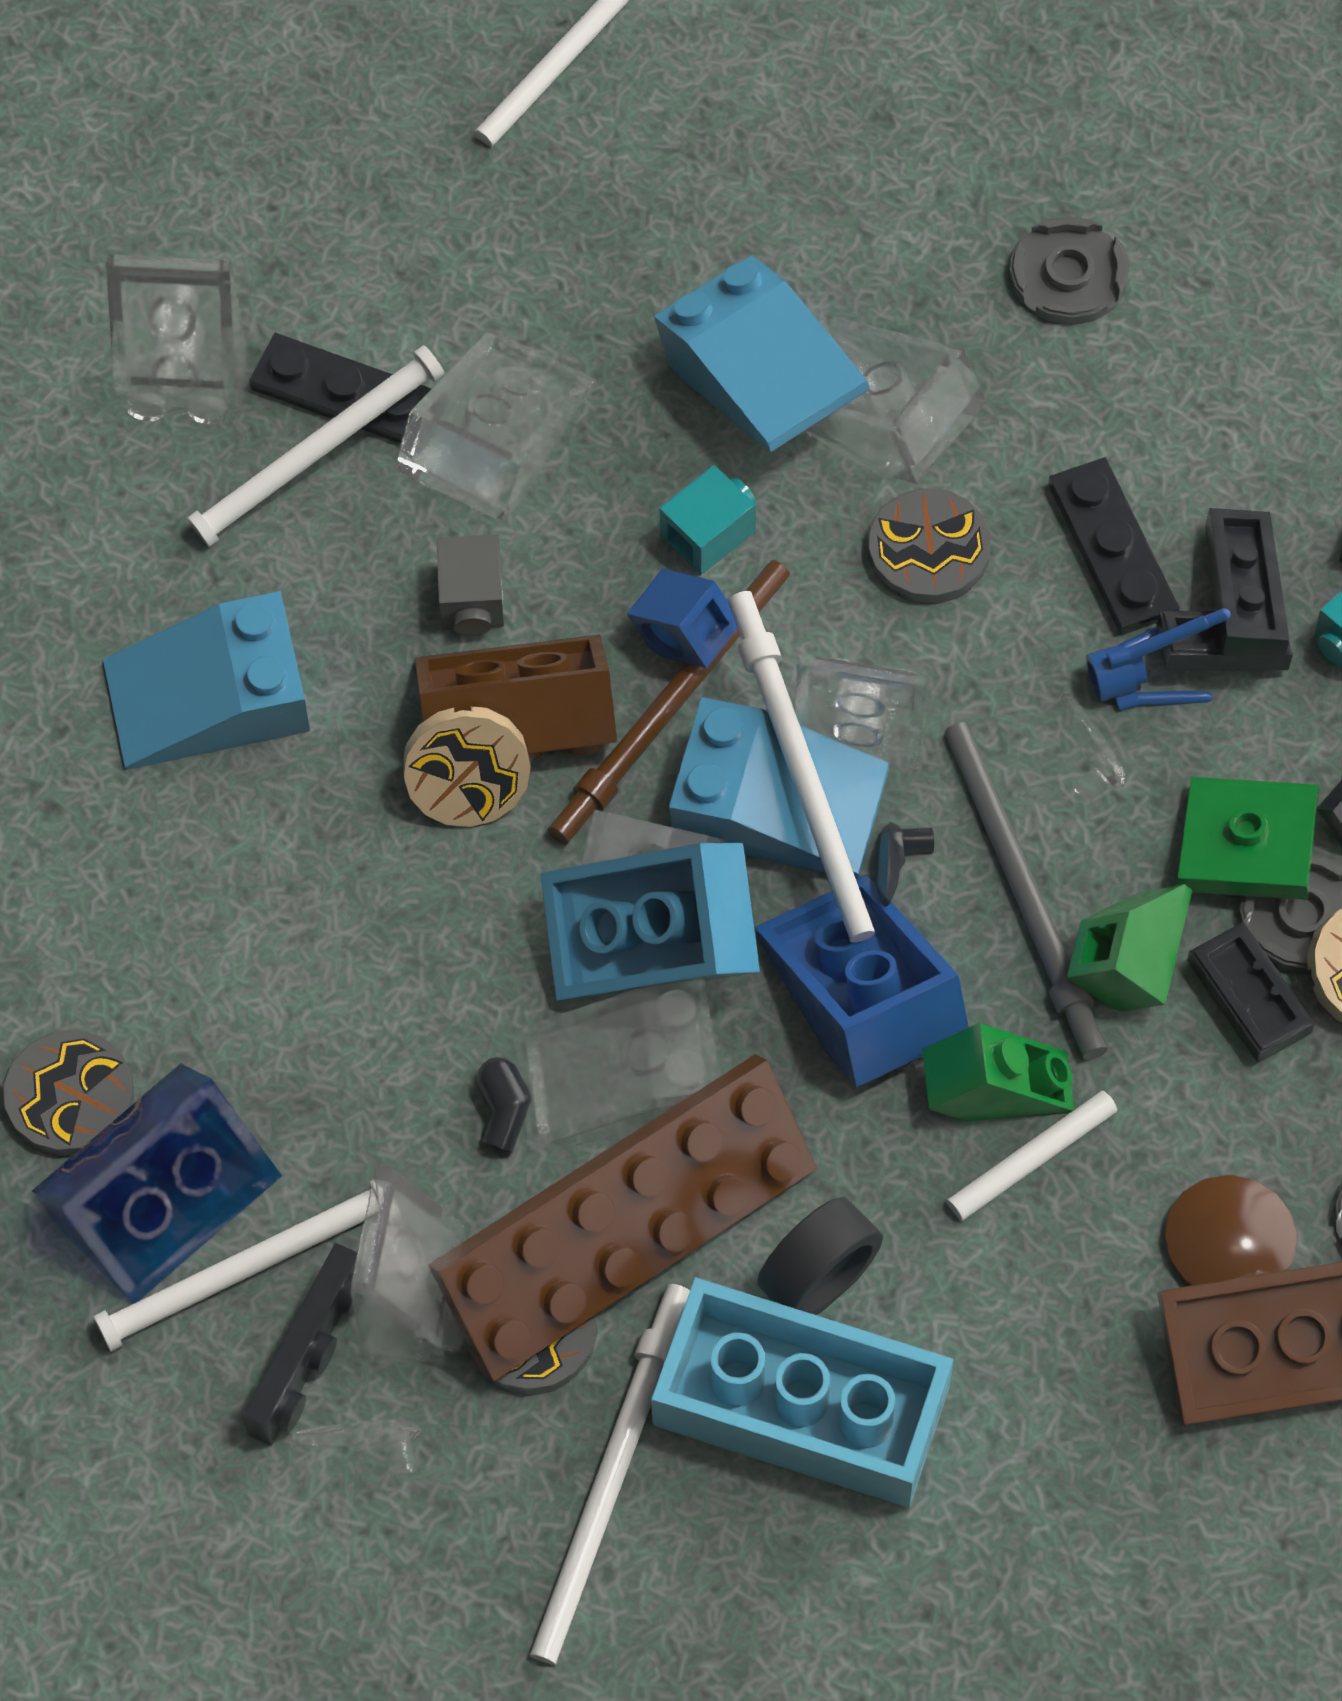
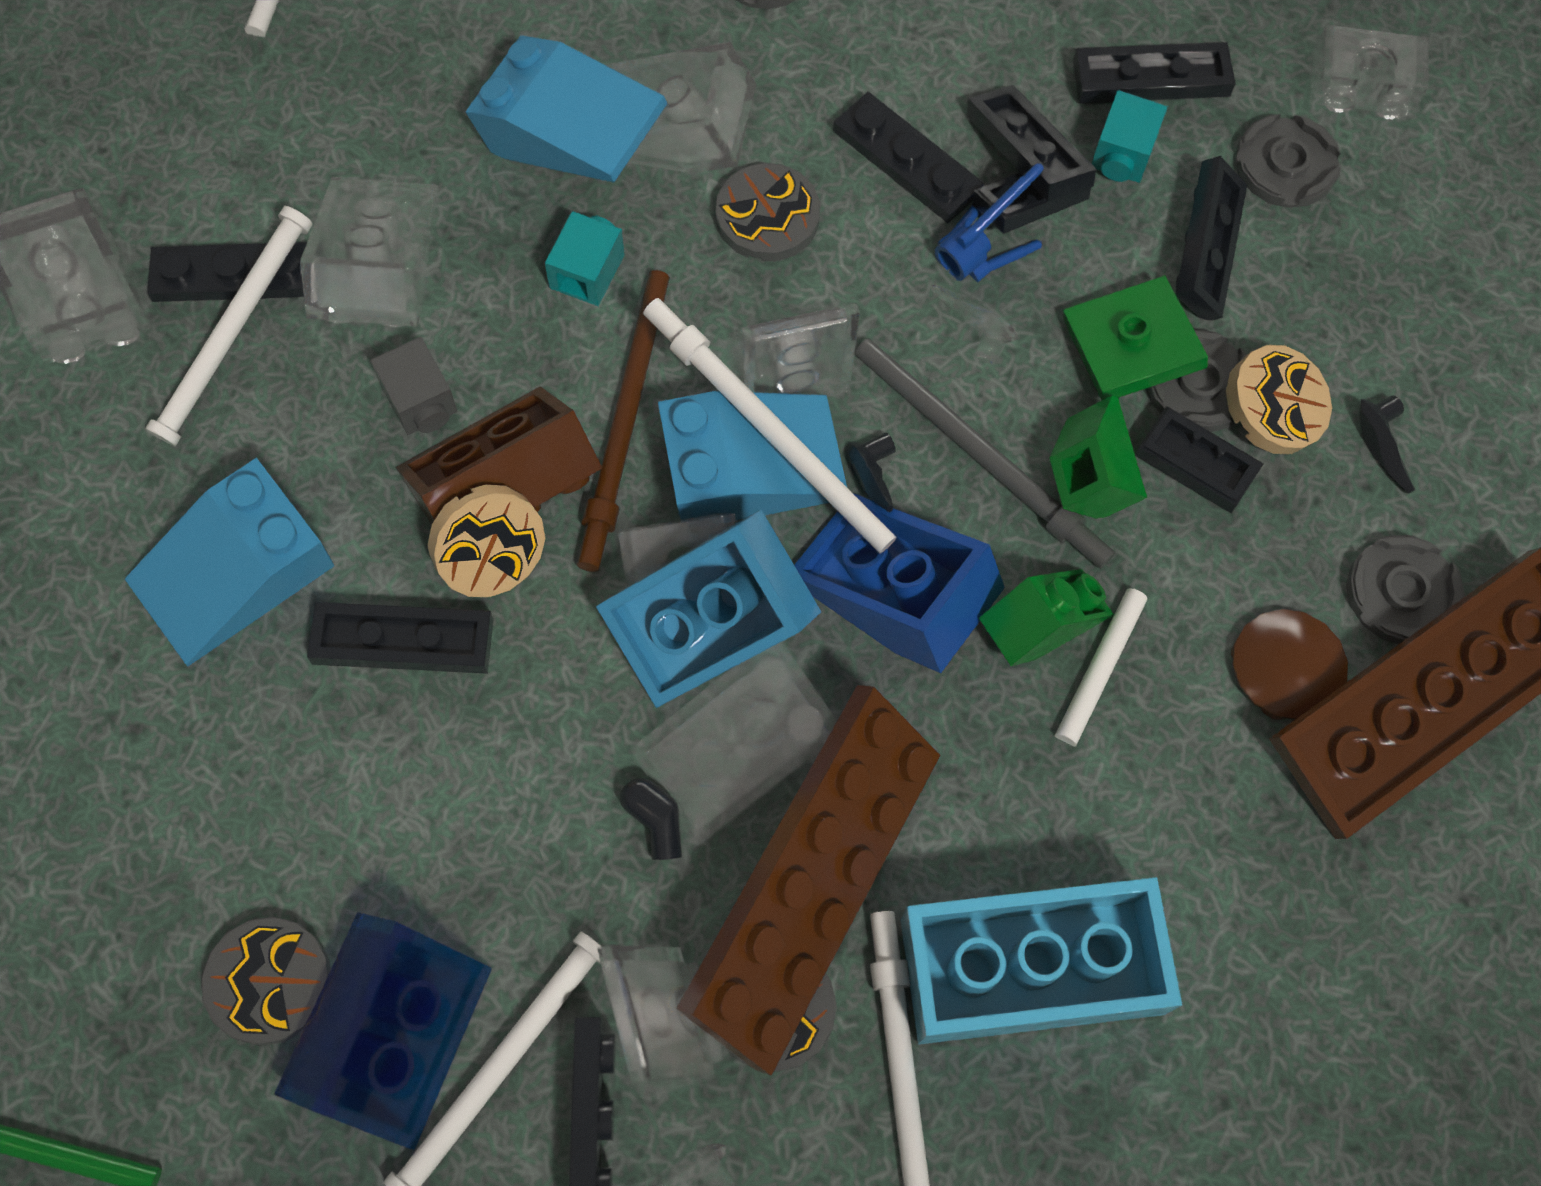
camera: 30 degrees left, 5 degrees up
(341, 827) = (400, 637): none -> black plate
(683, 618) = (607, 343): blue brick -> none
(820, 1257) = (995, 837): black tyre -> none

